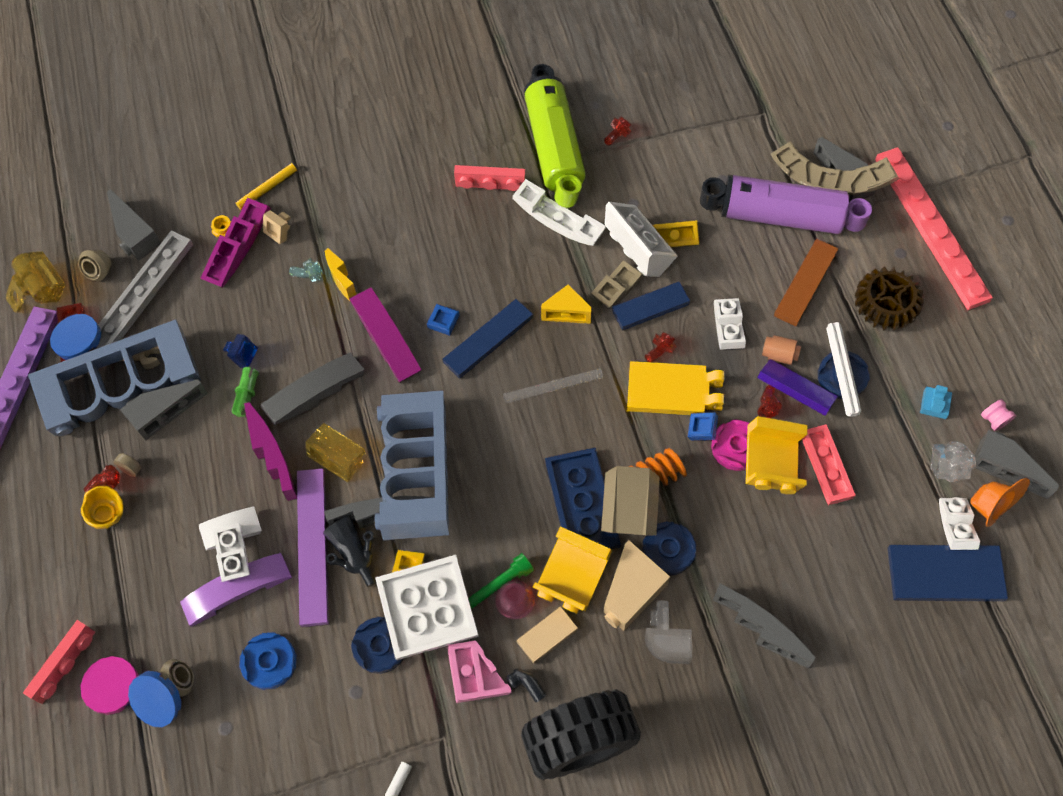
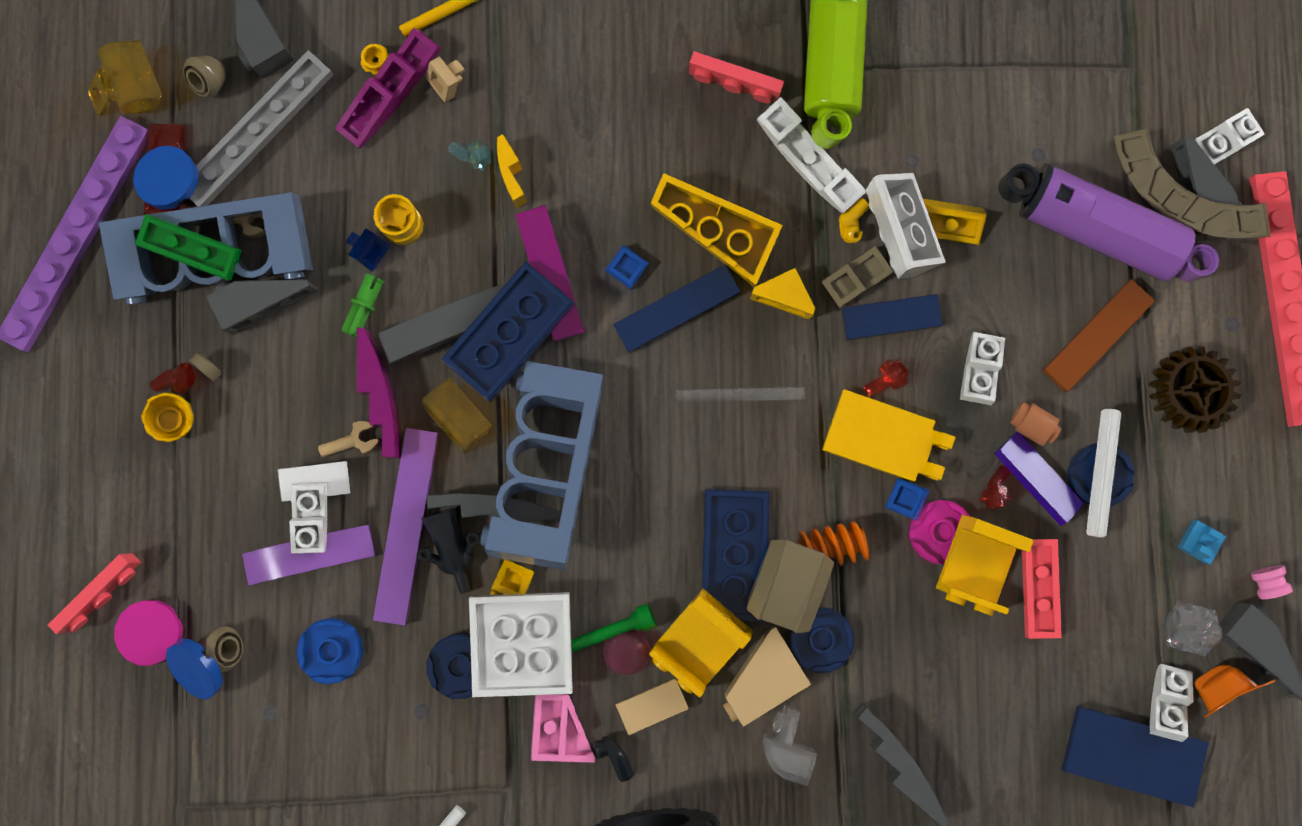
camera: 15 degrees right, 20 degrees up
(101, 375) = (188, 247): none -> green tile
(256, 492) = (350, 441): none -> tan bar
(261, 324) = (398, 219): none -> yellow wheel
(362, 378) = (508, 331): none -> dark blue tile
(503, 271) = (722, 228): none -> yellow wedge
(599, 249) = (849, 221): none -> yellow arm
(621, 127) = (928, 42): clear red plate -> none
(852, 134) = (1230, 136): none -> white slope

